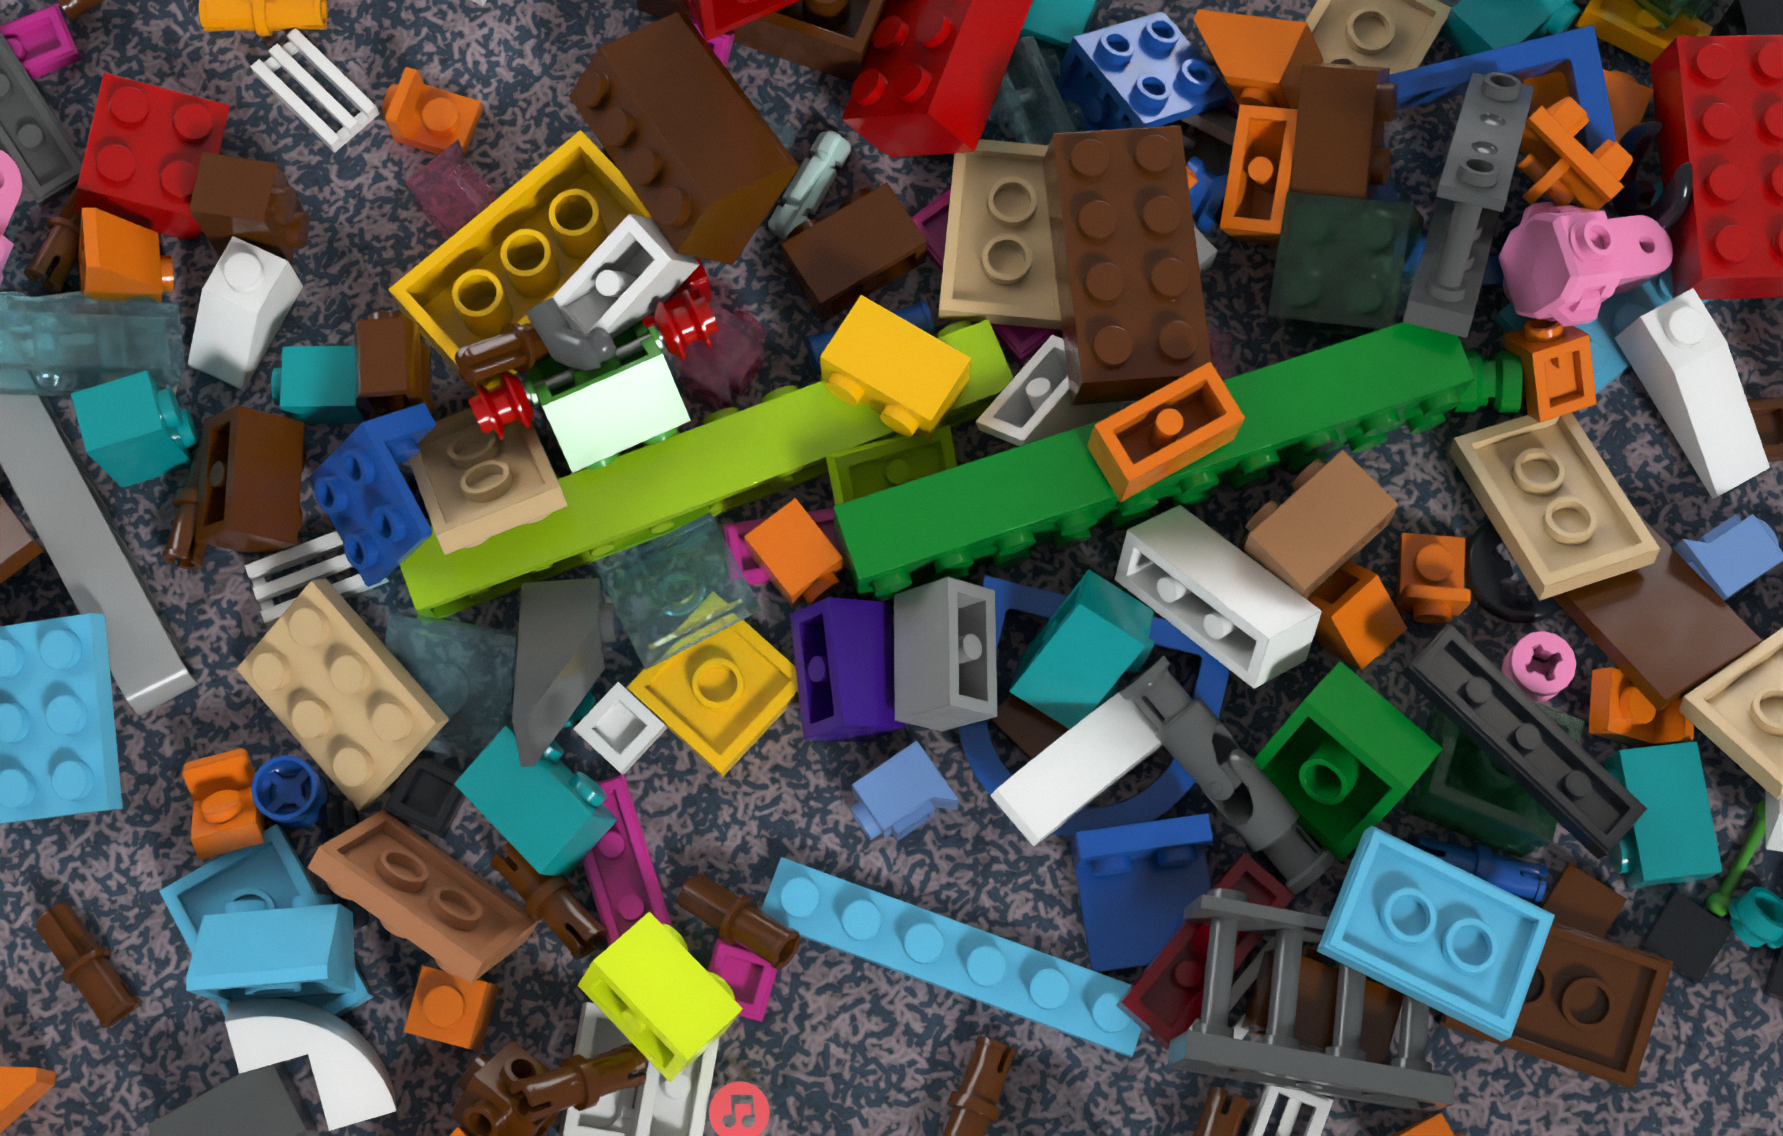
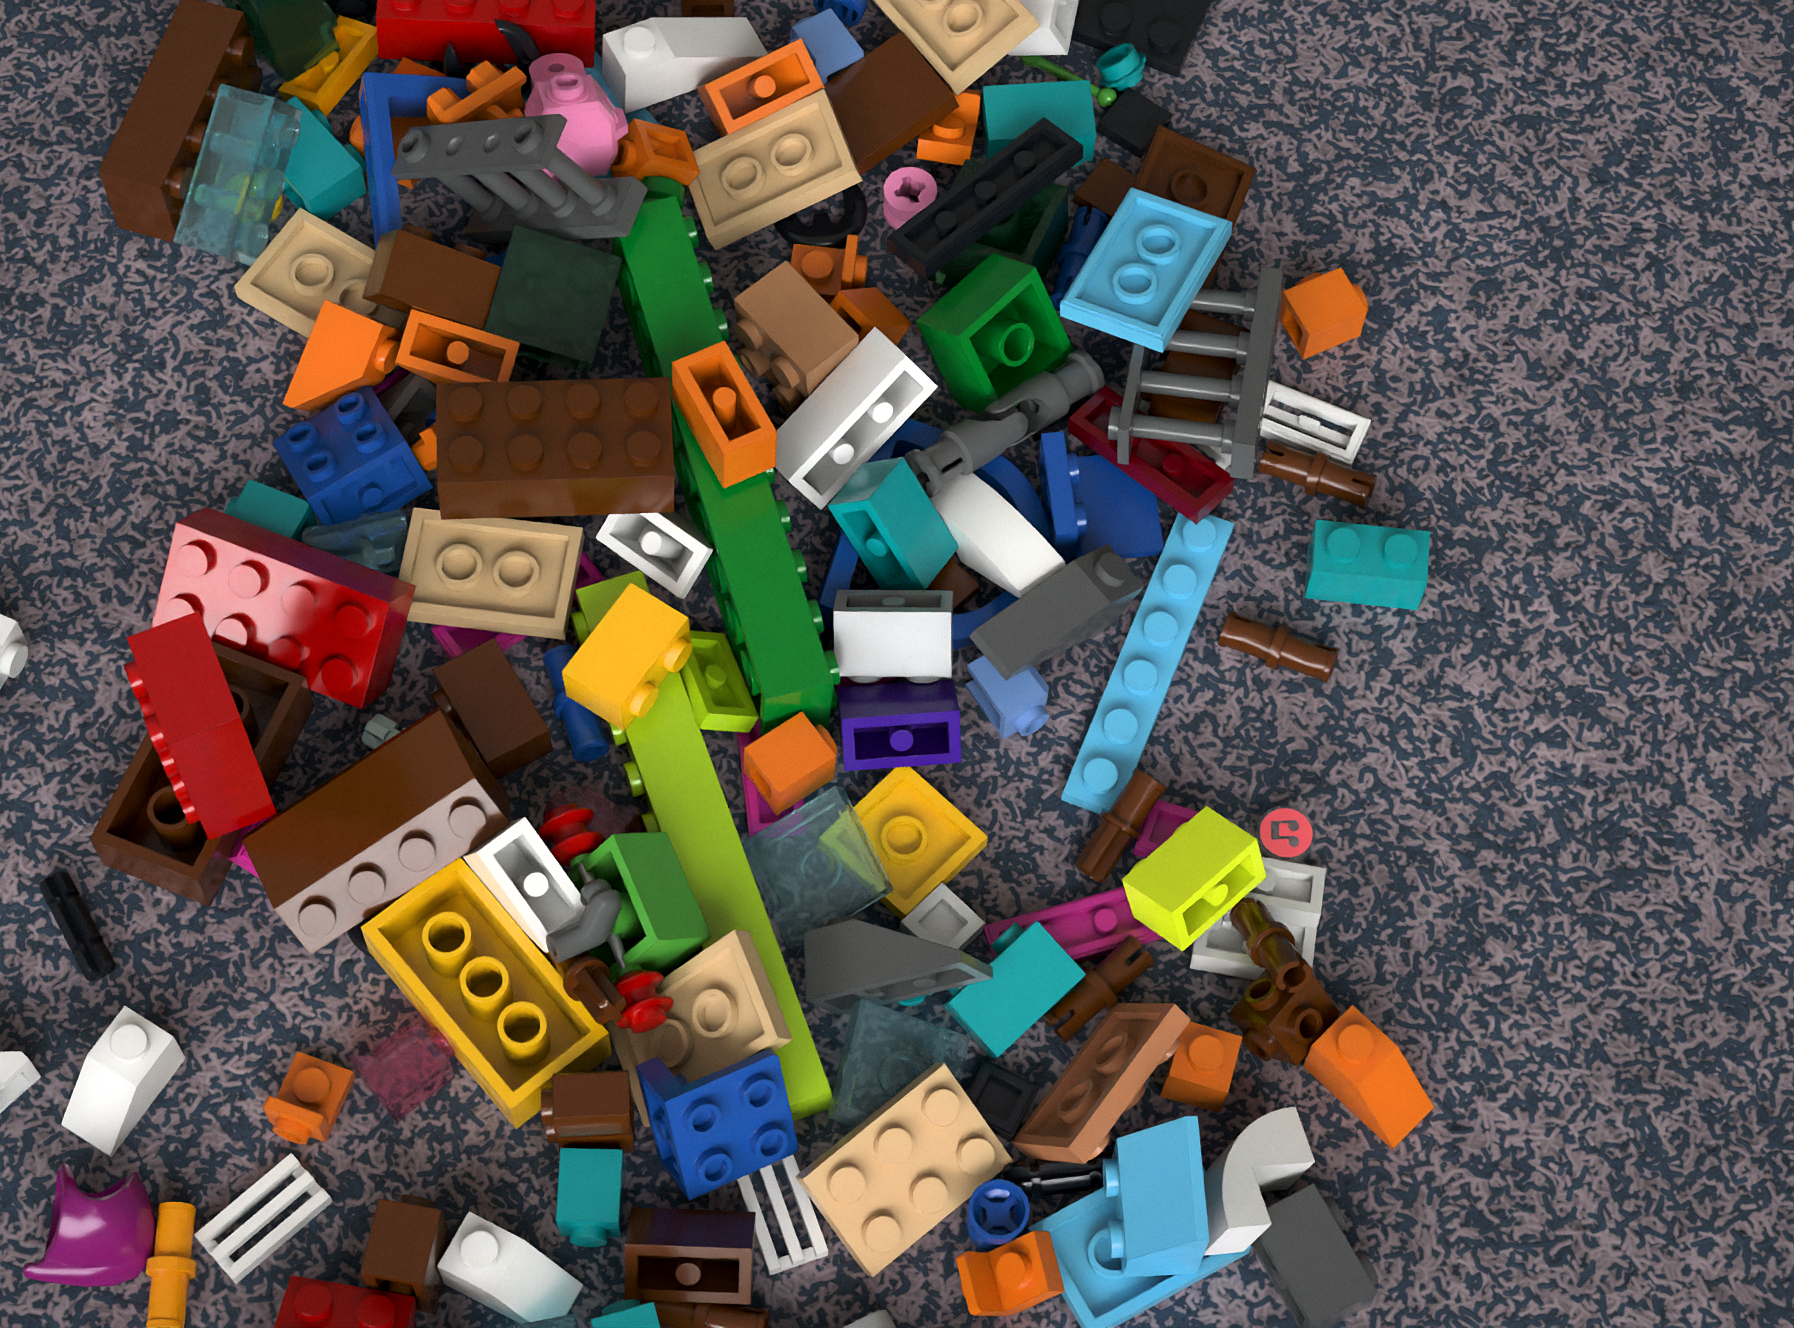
camera: 90 degrees left, 10 degrees down
(979, 836) = (1058, 612): none -> dark grey slope
(1659, 478) = (760, 87): none -> orange slope

